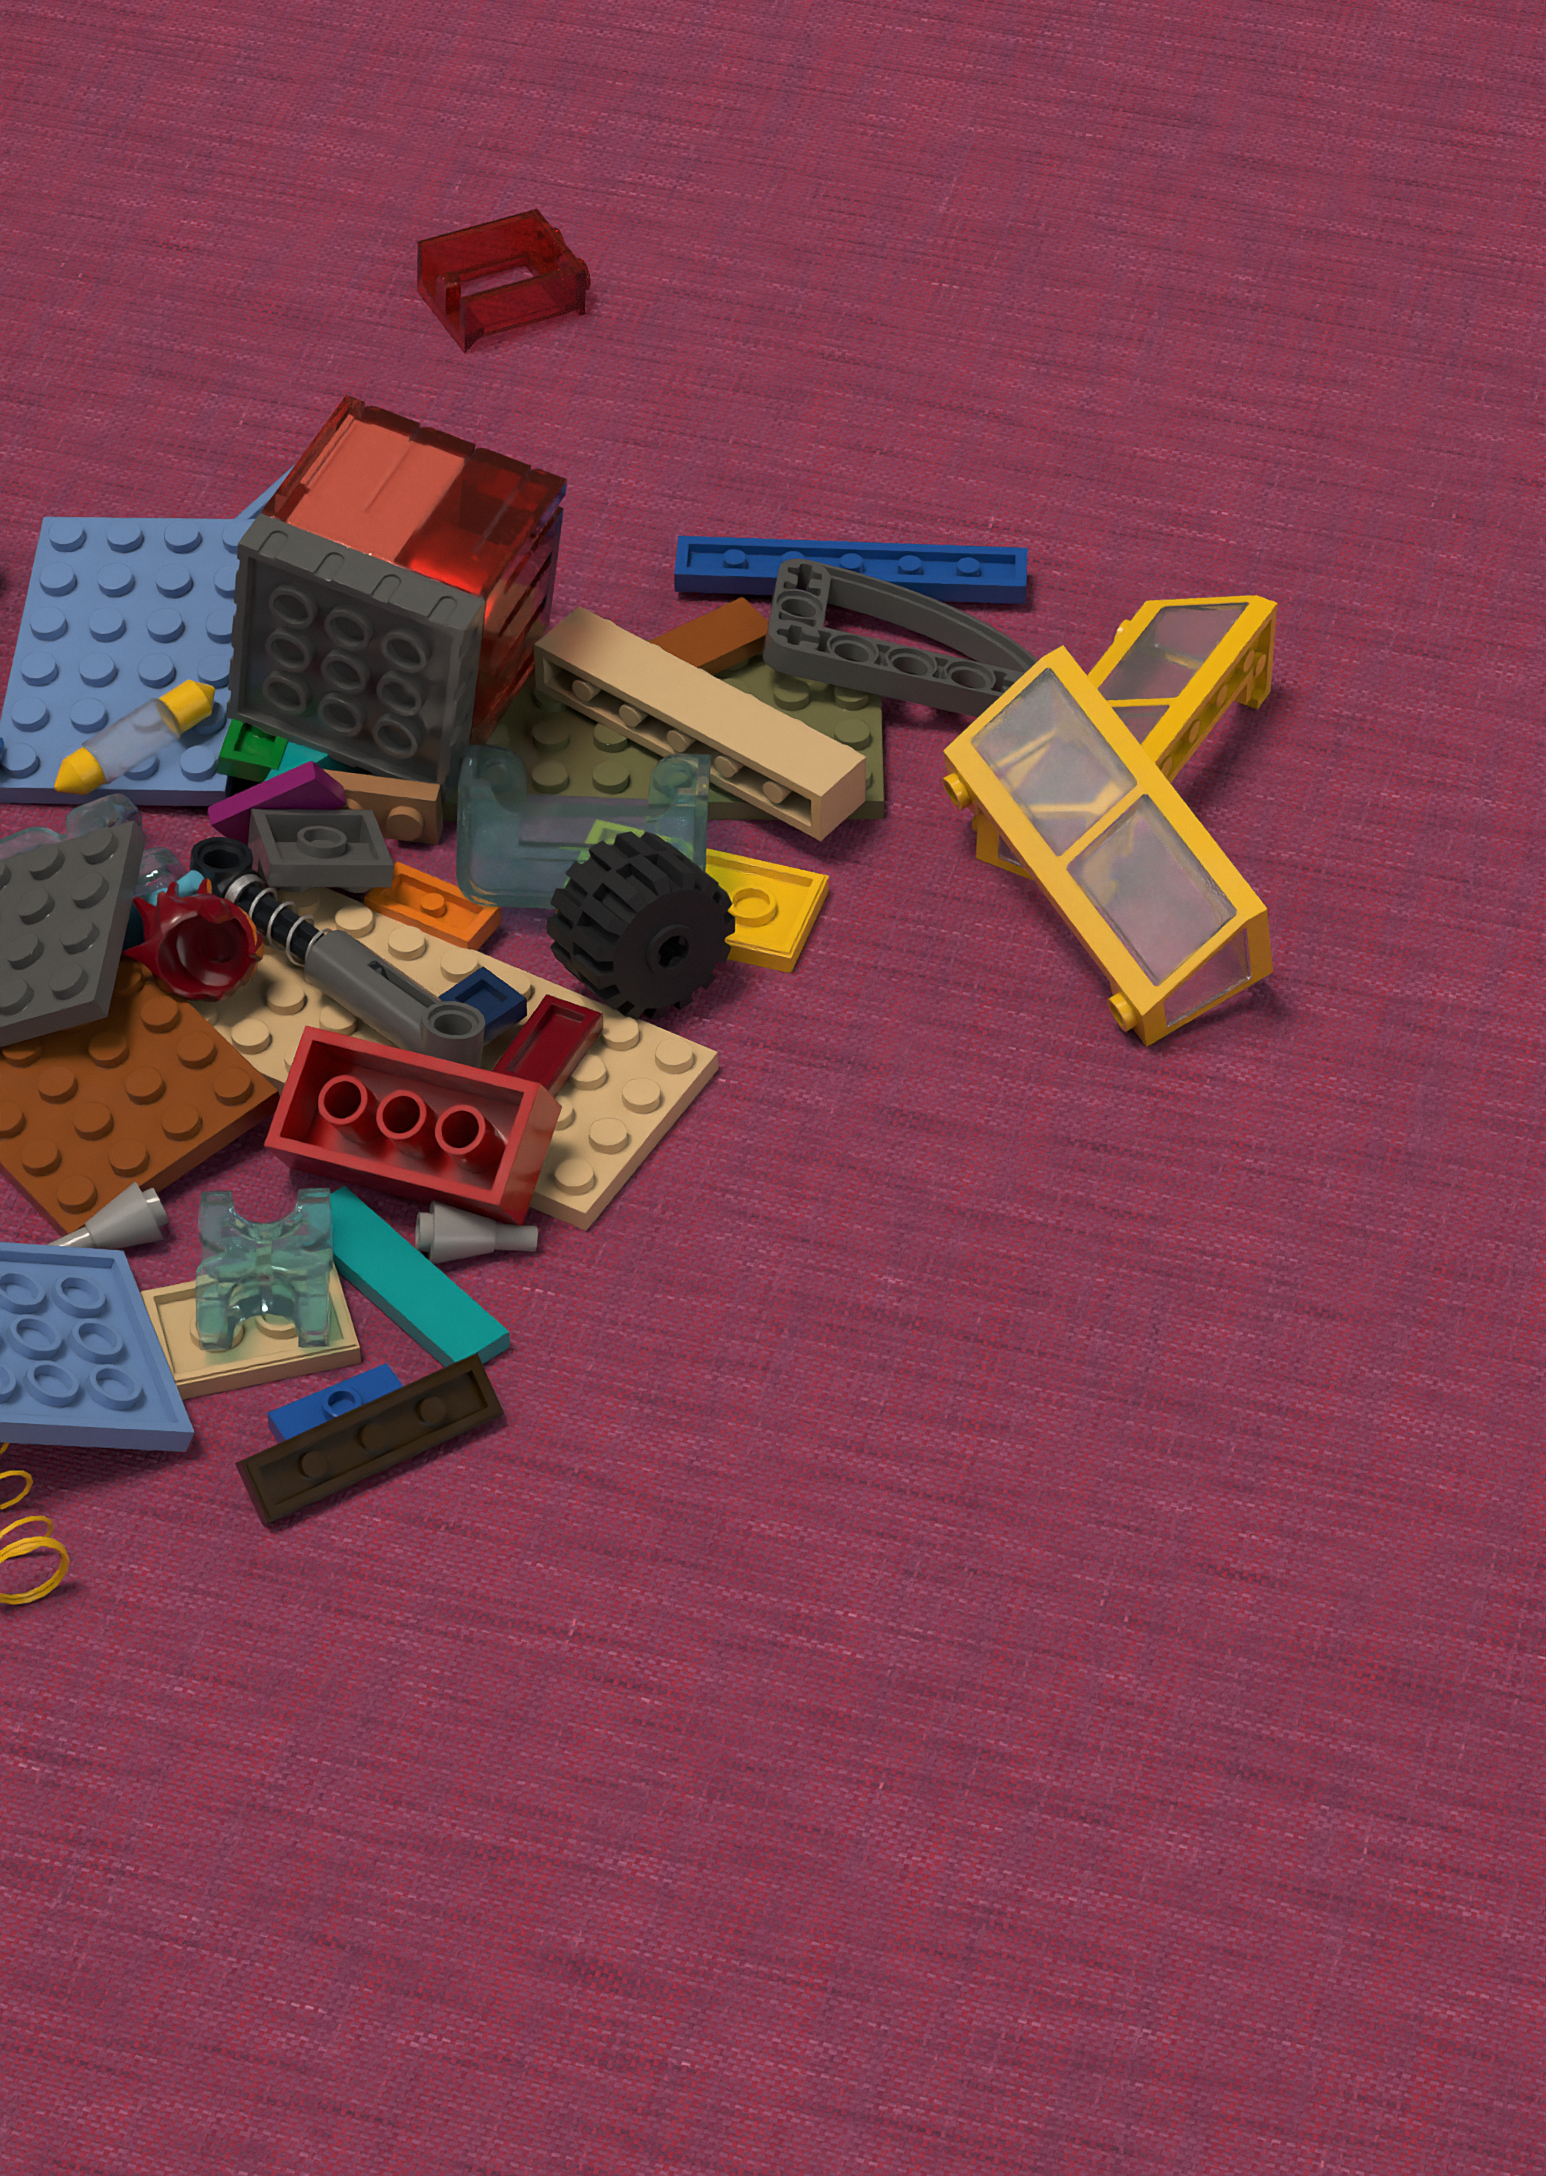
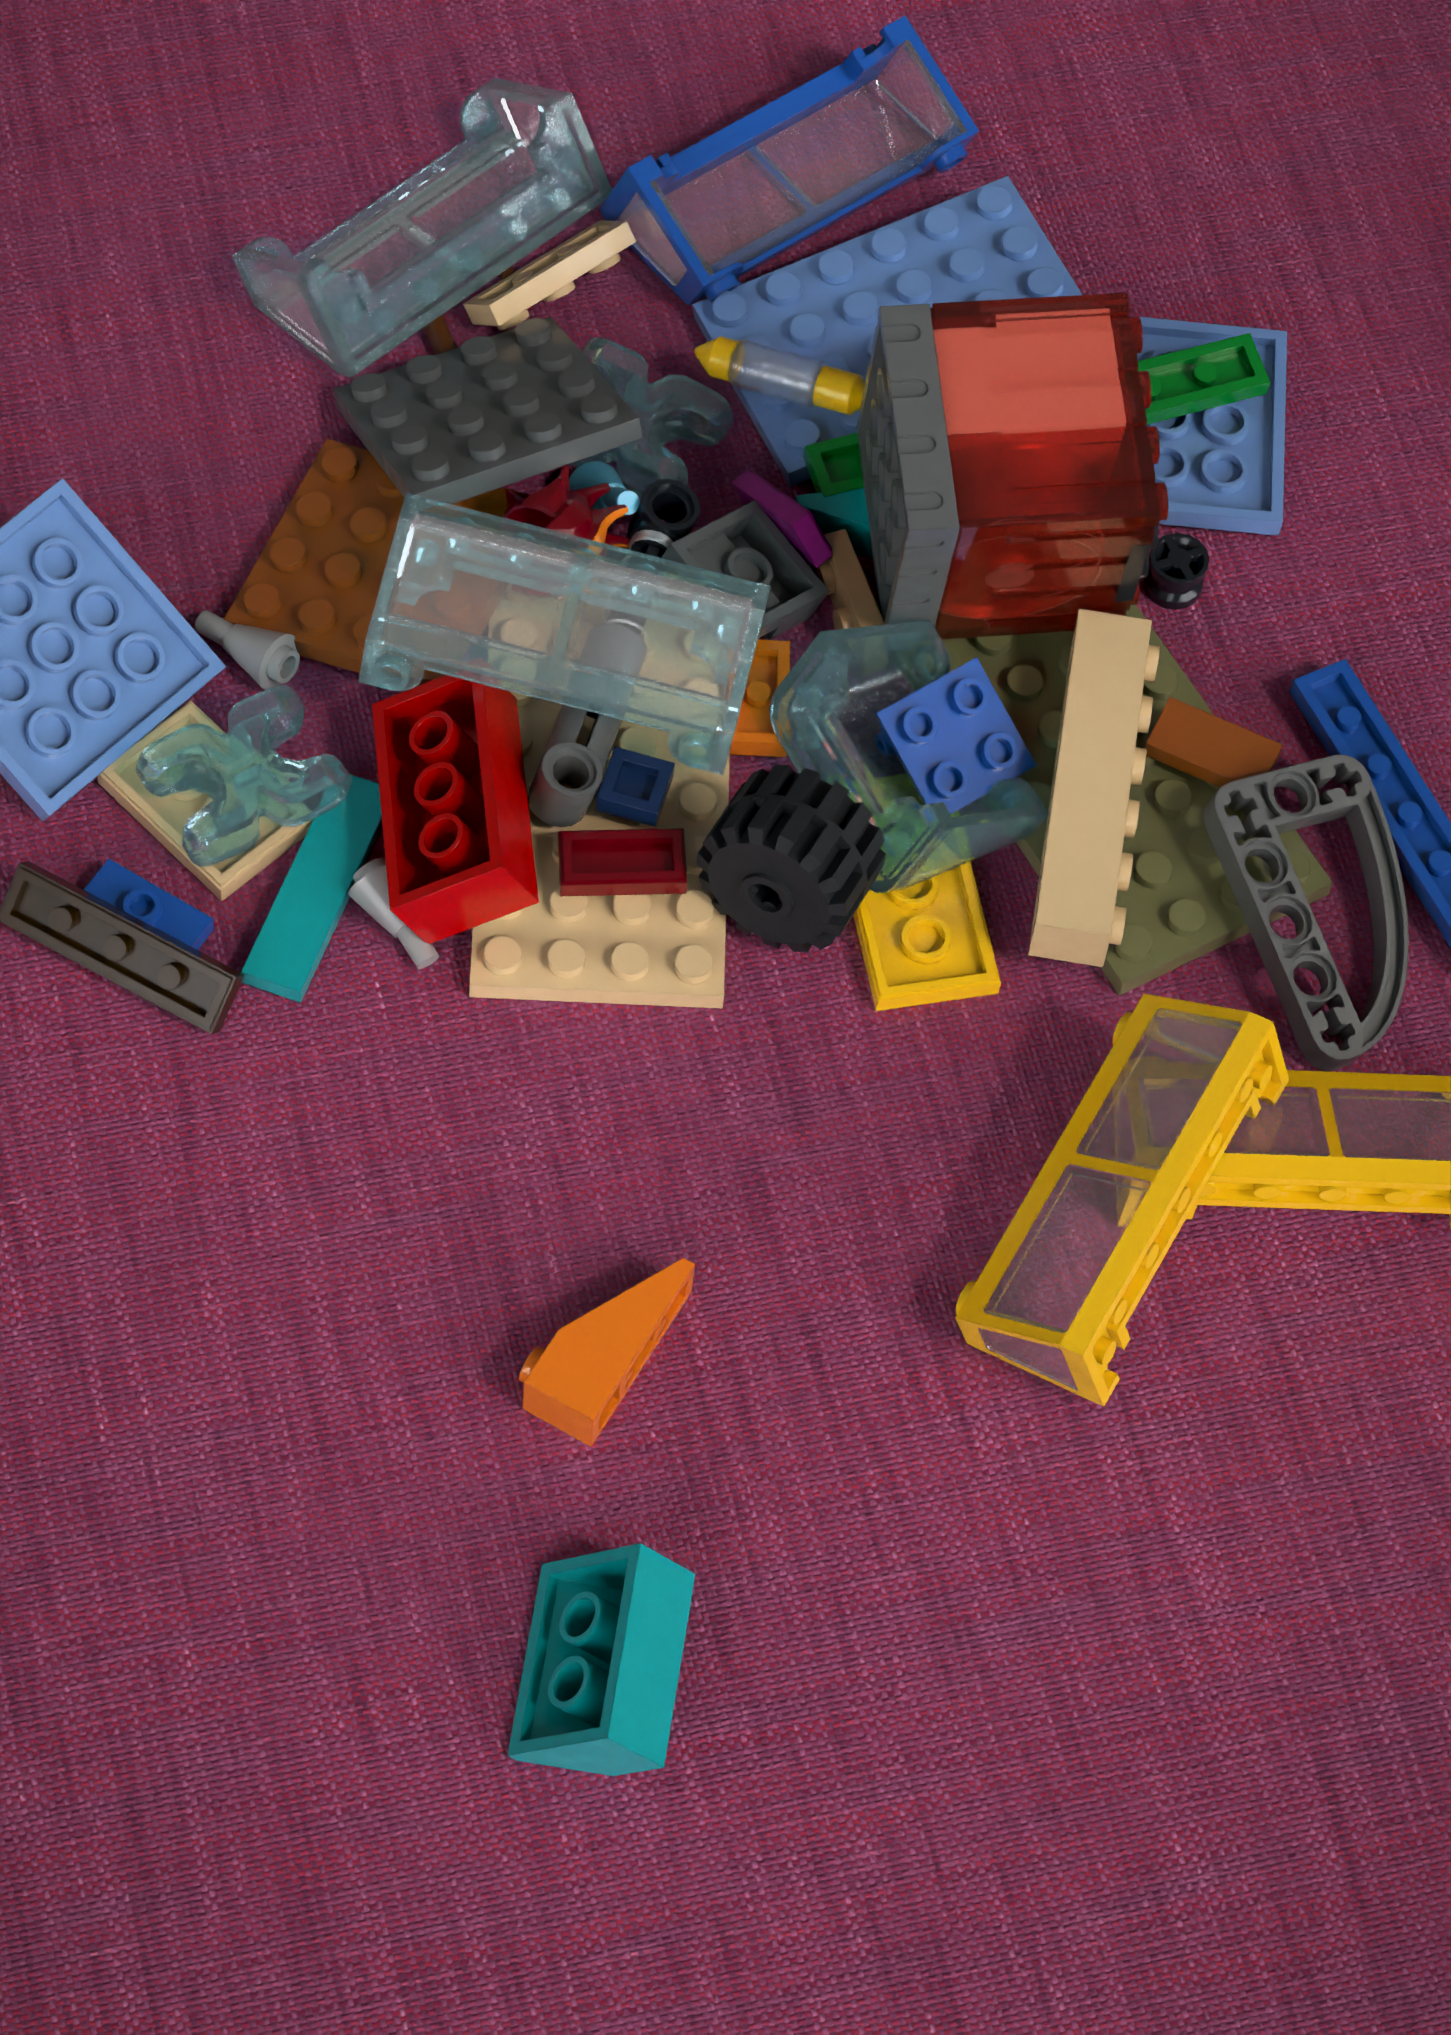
camera: 55 degrees right, 15 degrees up
(304, 955) = (566, 624): none -> windscreen
(586, 786) = (953, 738): none -> blue hinge
(1025, 1275) = (600, 1354): none -> orange slope
(1306, 1383) = (603, 1662): none -> teal slope

